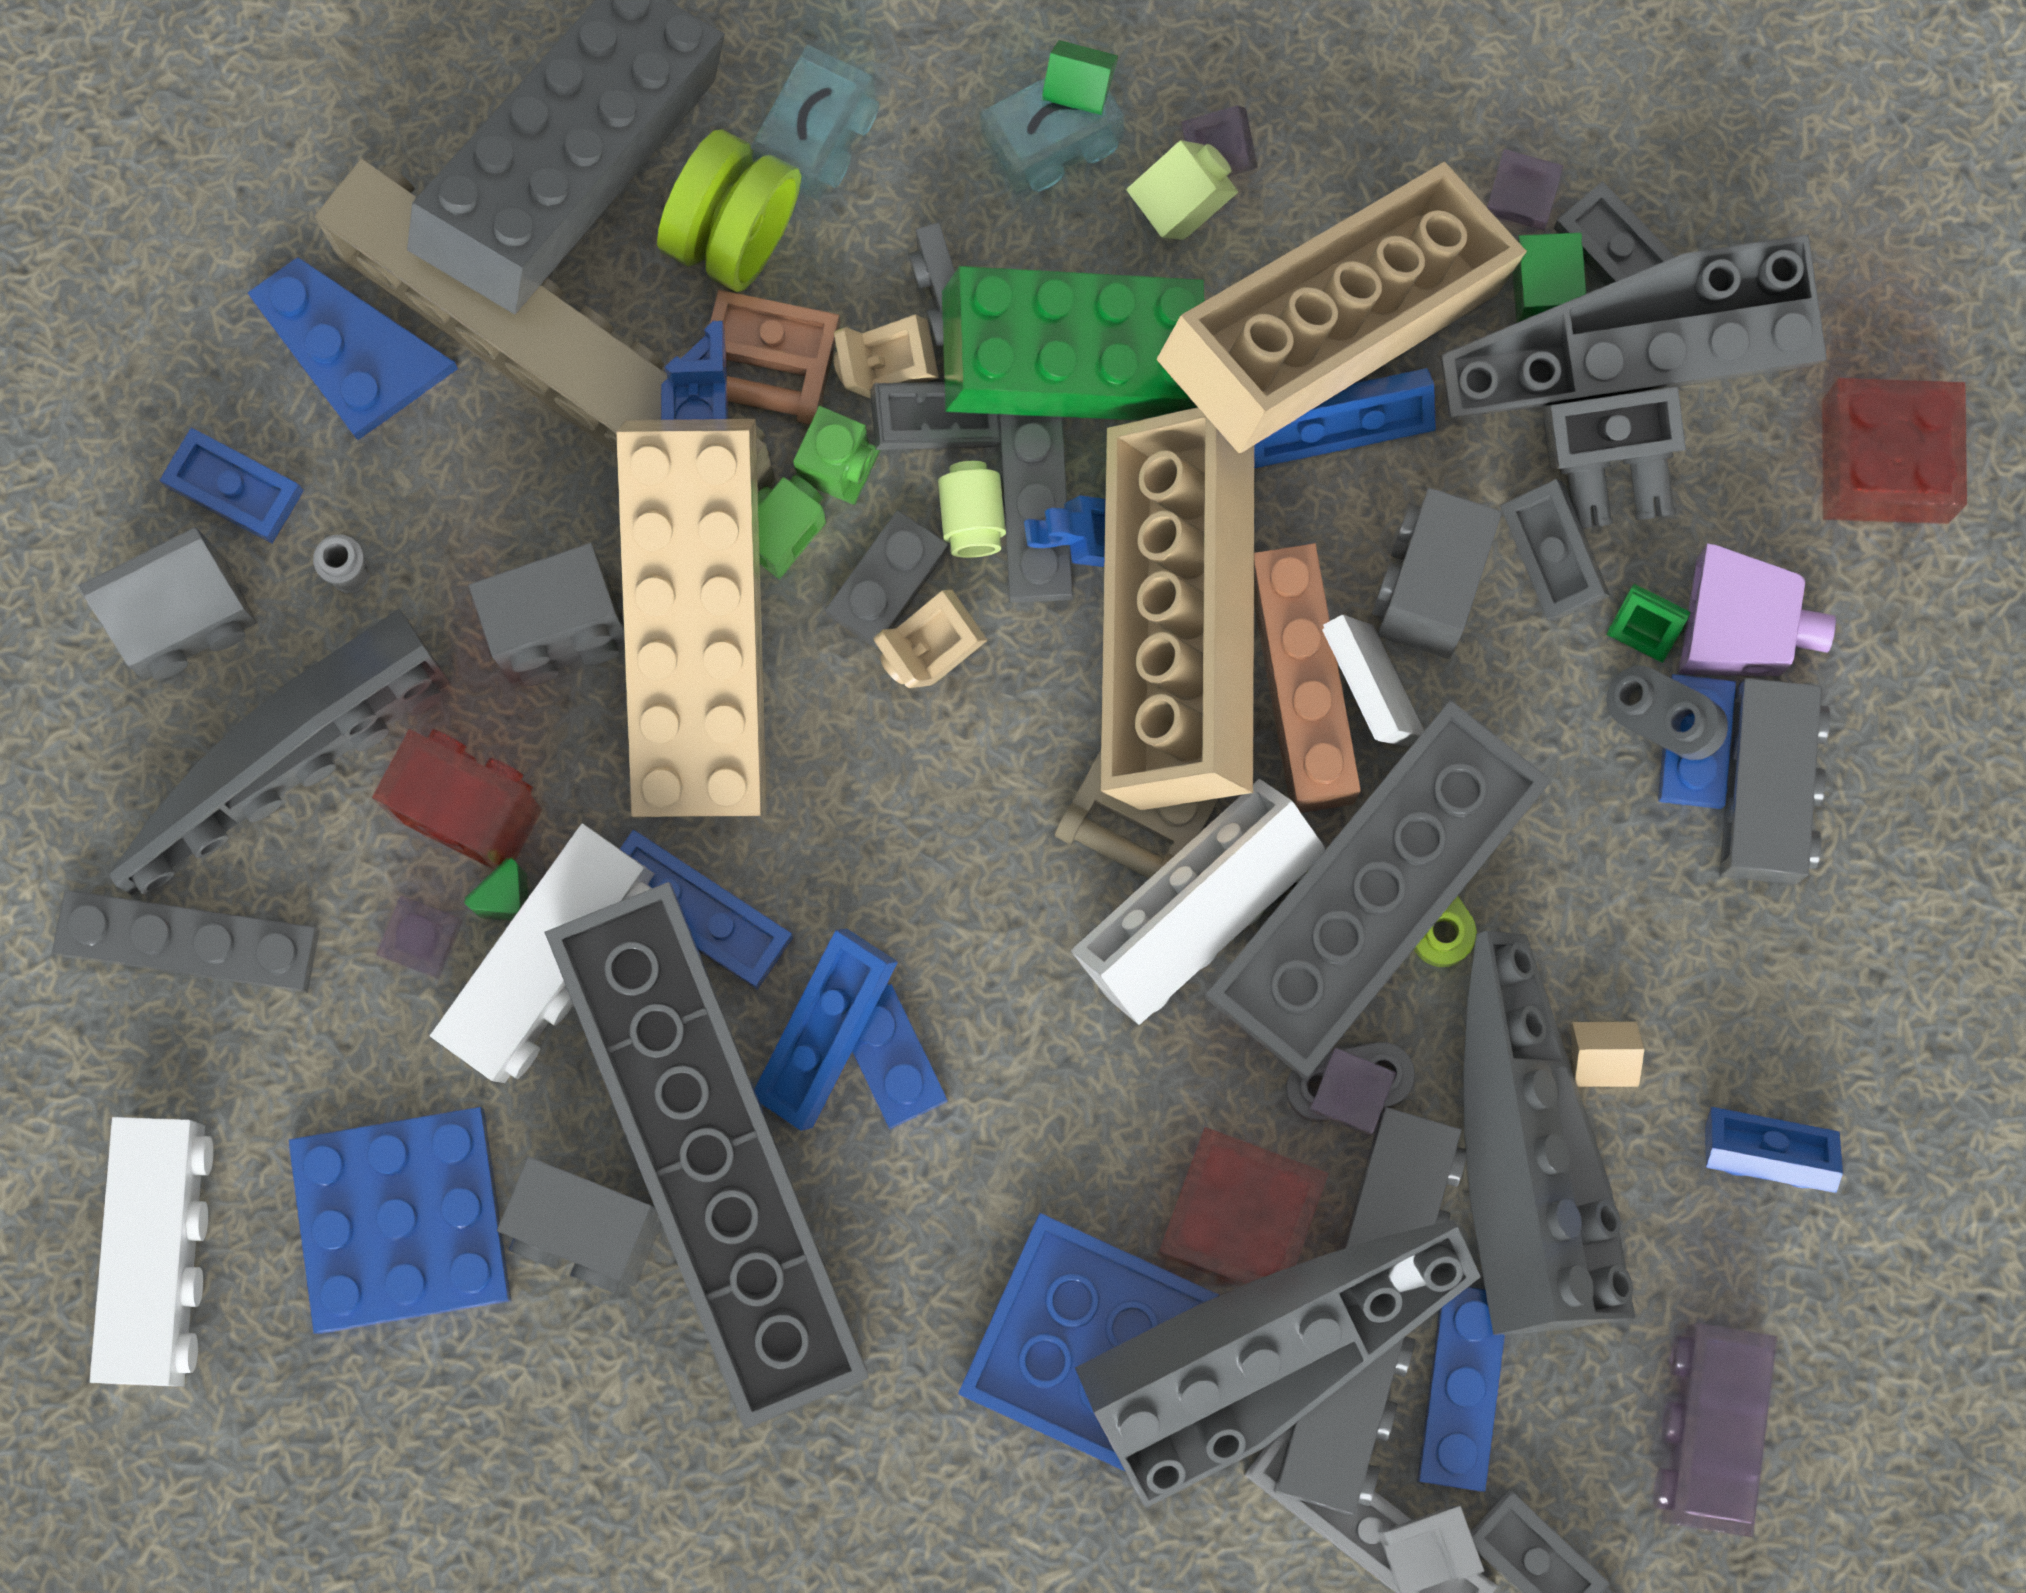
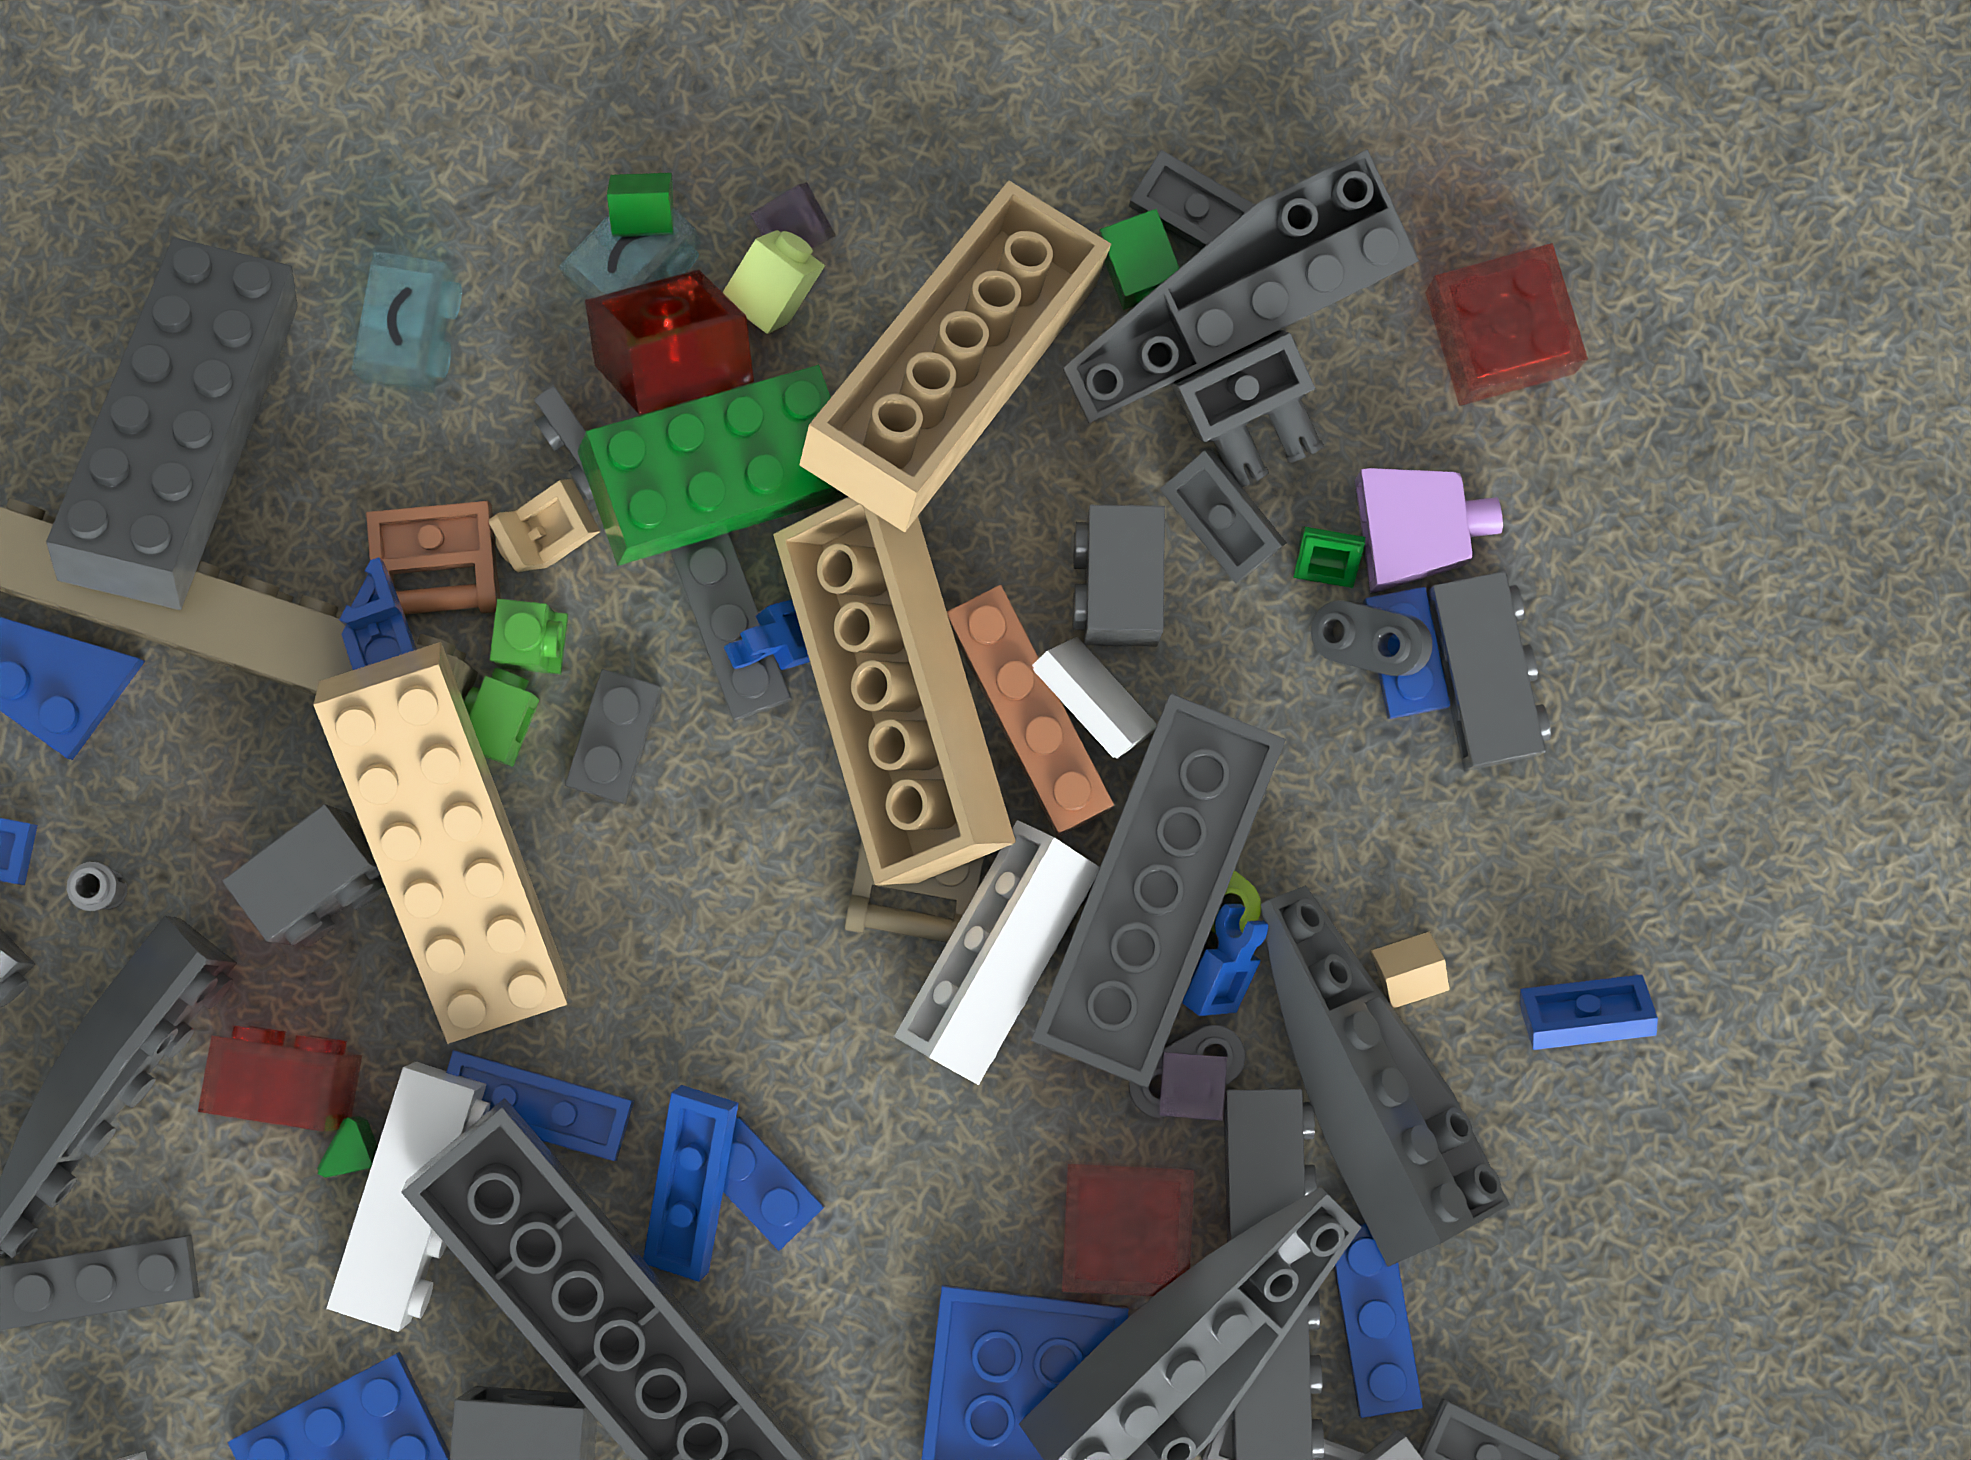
camera: 20 degrees left, 5 degrees up
(419, 937) = (287, 1213): clear purple plate -> none
(728, 210) = (350, 436): lime wheel -> none
(916, 419) = (590, 577): dark grey plate -> none
(929, 642) = (671, 786): tan bracket -> none
(972, 509) = (671, 647): yellowish green brick -> none
(1066, 212) = (669, 341): none -> clear red brick
(1355, 418) = (1007, 443): blue plate -> none
(1421, 993) = (1226, 972): none -> blue plate
(1524, 189) = (1090, 179): clear purple plate -> none
(1716, 1429) = (1612, 1285): clear purple brick -> none

